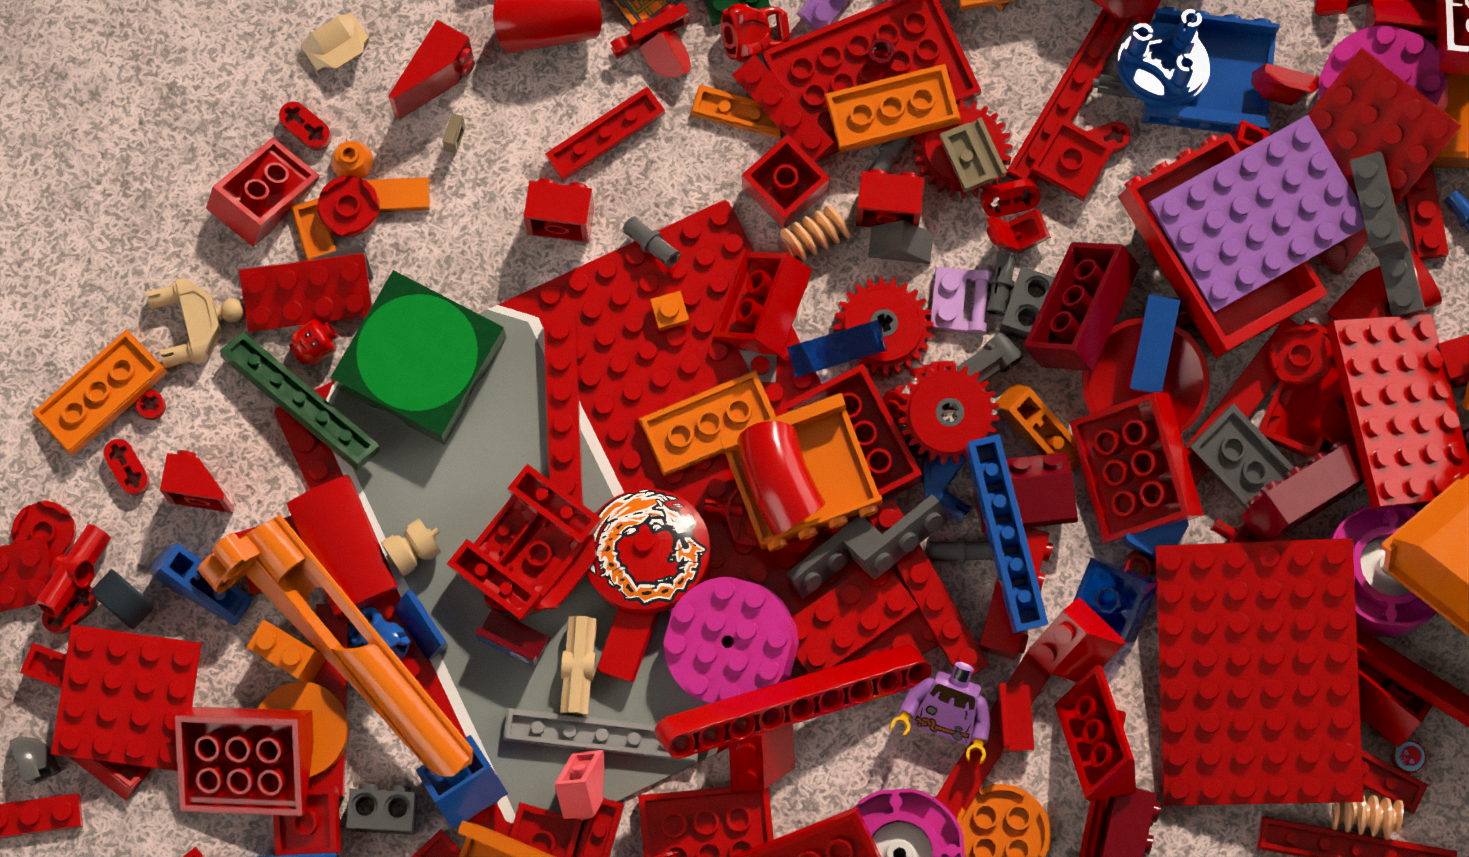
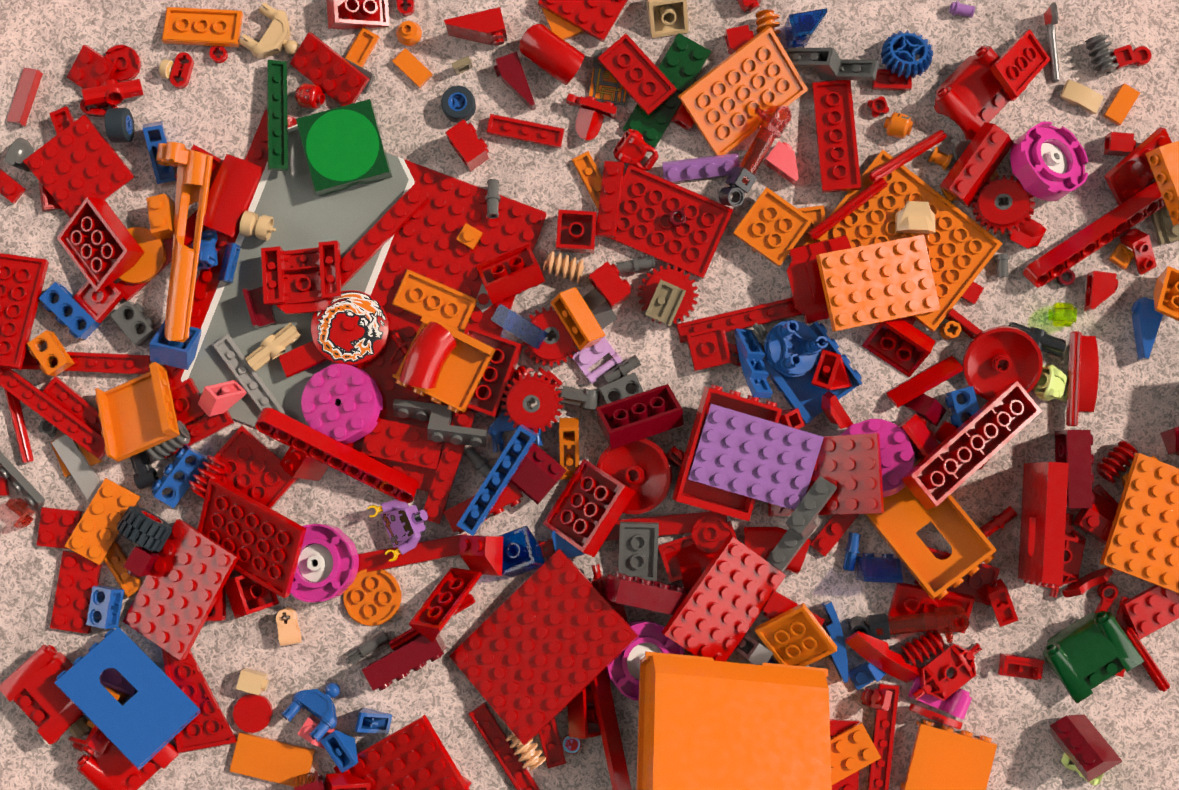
camera: 45 degrees right, 10 degrees up
(107, 482) = (165, 68): none -> tan tile
(191, 485) = (197, 105): red slope -> none
(348, 206) = (385, 51): red tile -> none
(494, 168) = (458, 97): none -> black wheel
(529, 87) = (513, 77): none -> dark red slope
(892, 108) = (655, 246): orange tile -> none
(895, 271) = (577, 318): none -> orange brick
(1010, 197) = (665, 337): red beam -> none
(1015, 718) = (425, 556): red panel -> none
(1018, 233) = (650, 355): red bracket -> none
(1131, 120) = (751, 361): none -> blue slope
(1155, 343) = (651, 465): blue tile -> none
(1232, 46) = (831, 372): none -> red slope

